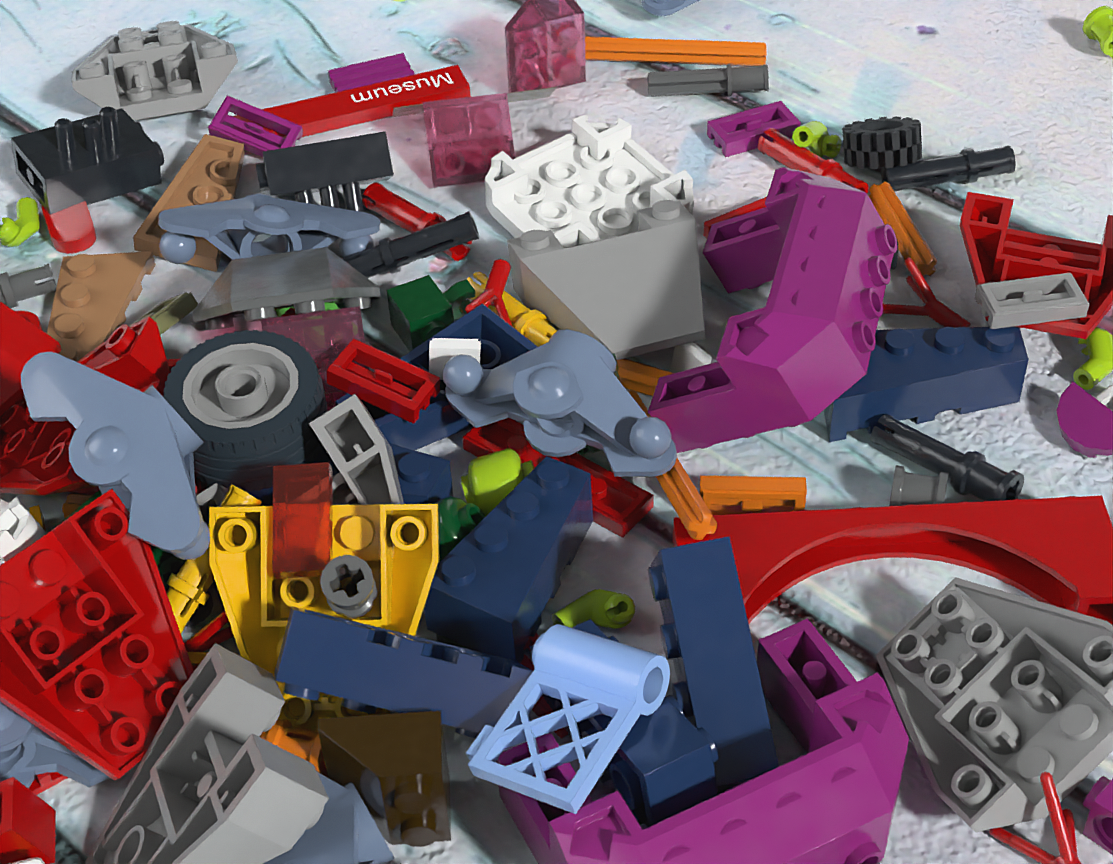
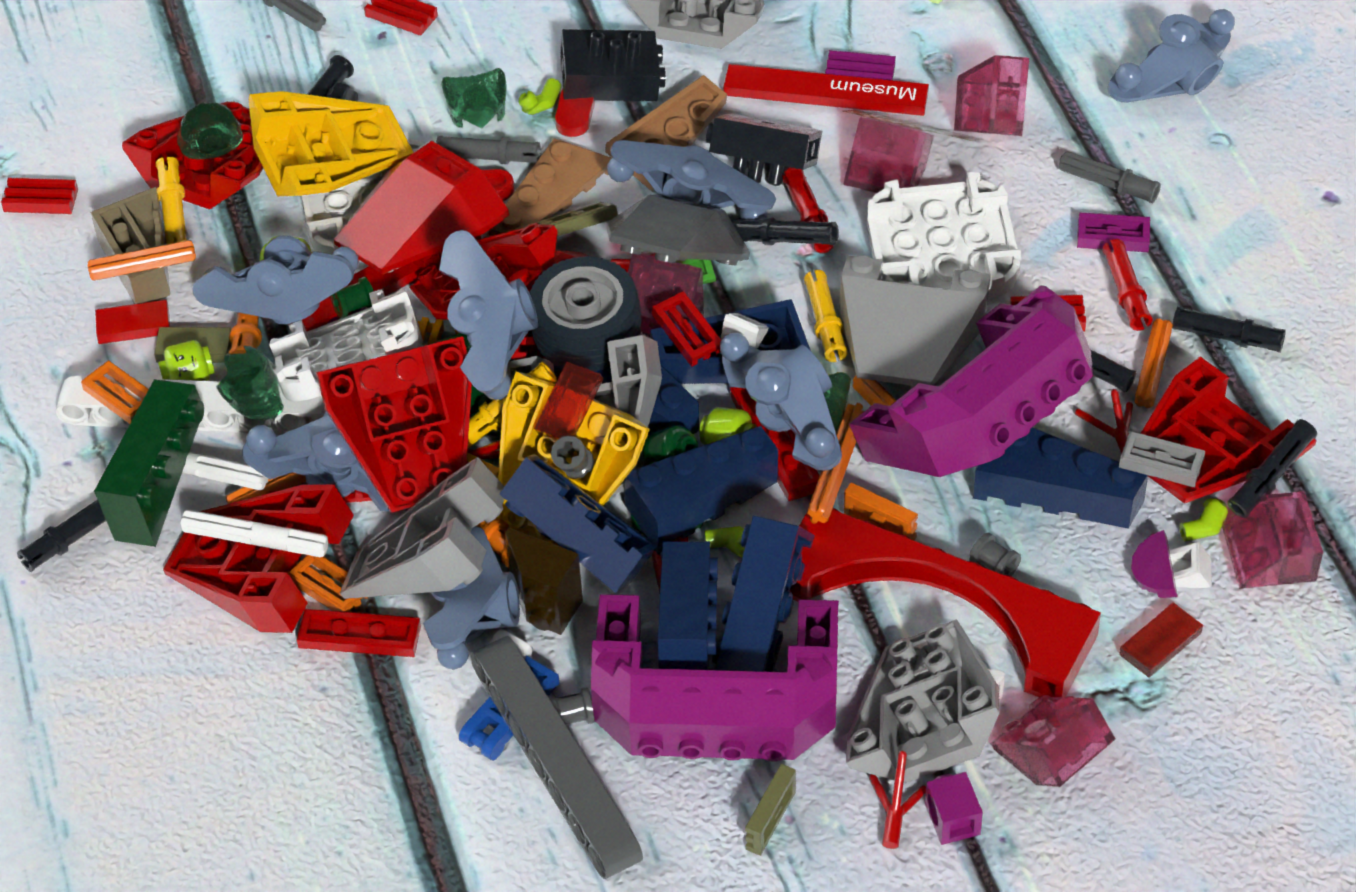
camera: 30 degrees right, 5 degrees up
(250, 134) = (759, 105): magenta tile -> none
(421, 309) = (764, 286): dark green brick -> none
(494, 290) = (812, 293): red plant -> none
(597, 679) = (668, 573): light blue piece -> none
(675, 51) = (1102, 136): orange axle -> none
(816, 138) = (1148, 260): lime arm -> none
(882, 142) = (1189, 287): black tyre -> none
(965, 471) = (1038, 558): black pin -> none

